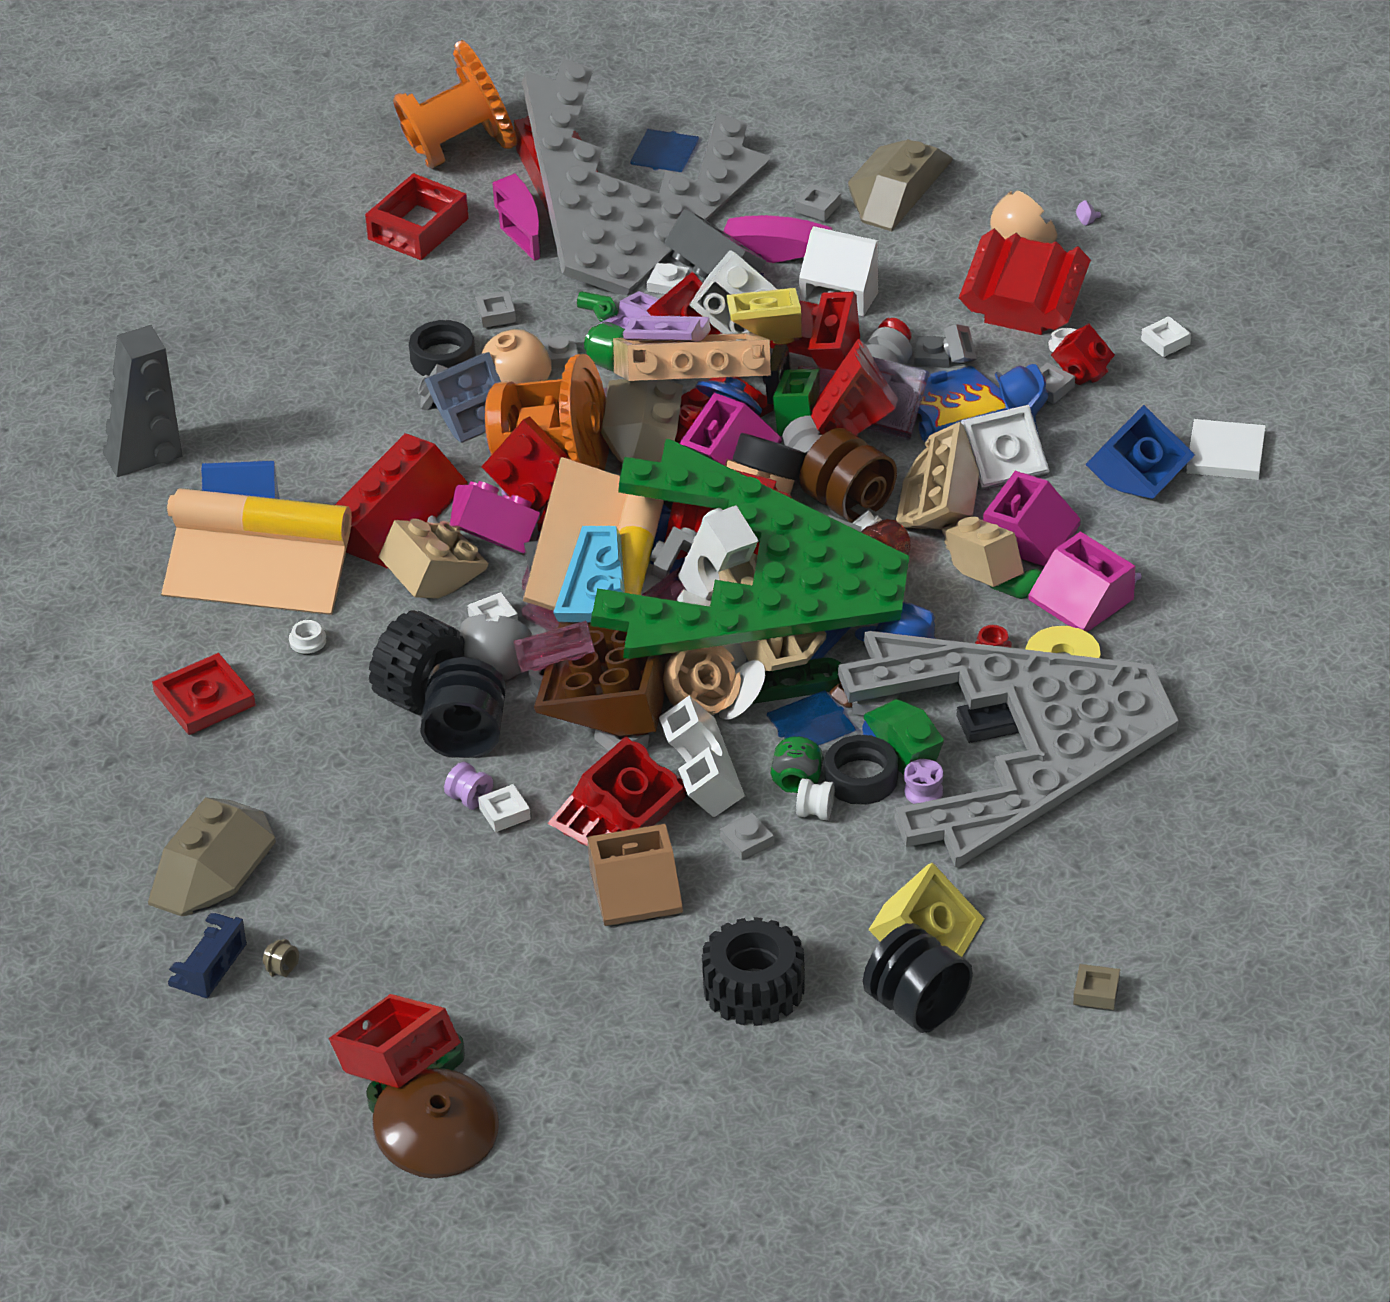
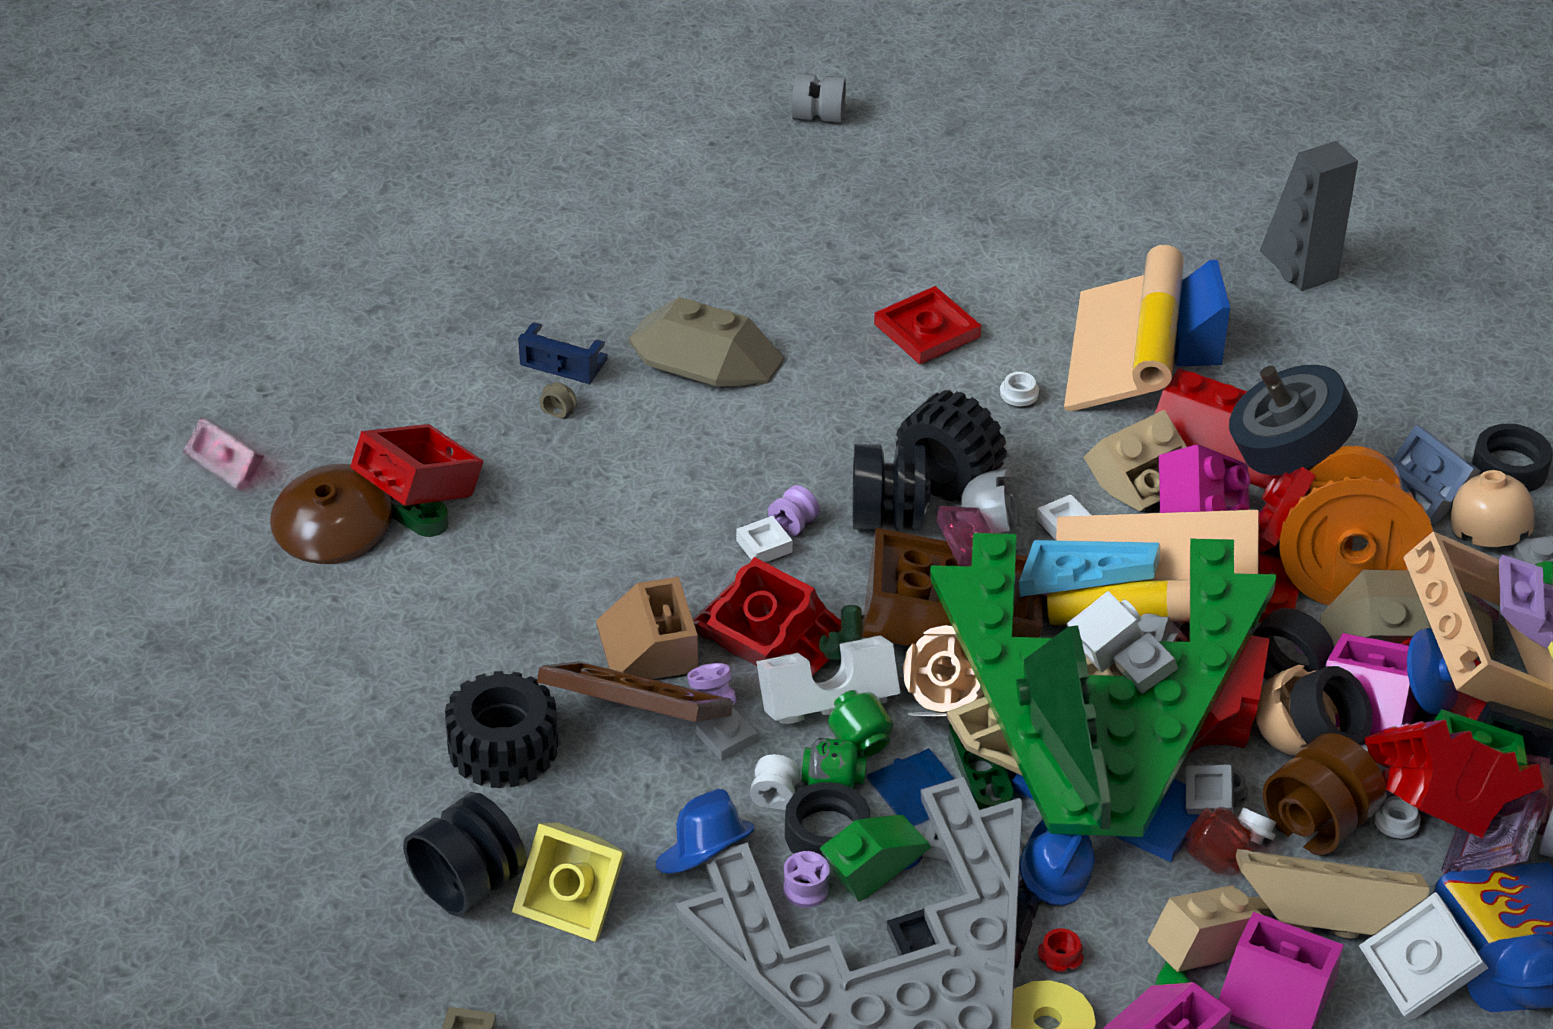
camera: 85 degrees right, 0 degrees up
(337, 1213) = (223, 453): none -> clear pink plate
(444, 429) = (1293, 419): none -> black wheel
(655, 744) = (850, 631): none -> clear green arm
(702, 837) = (712, 679): none -> lavender wheel
(726, 870) = (635, 691): none -> reddish brown tile
(753, 739) = (861, 720): none -> green head
(763, 519) = (1145, 662): none -> light grey plate
(822, 561) = (1064, 719): none -> dark green wedge
(883, 843) = (703, 830): none -> blue piece

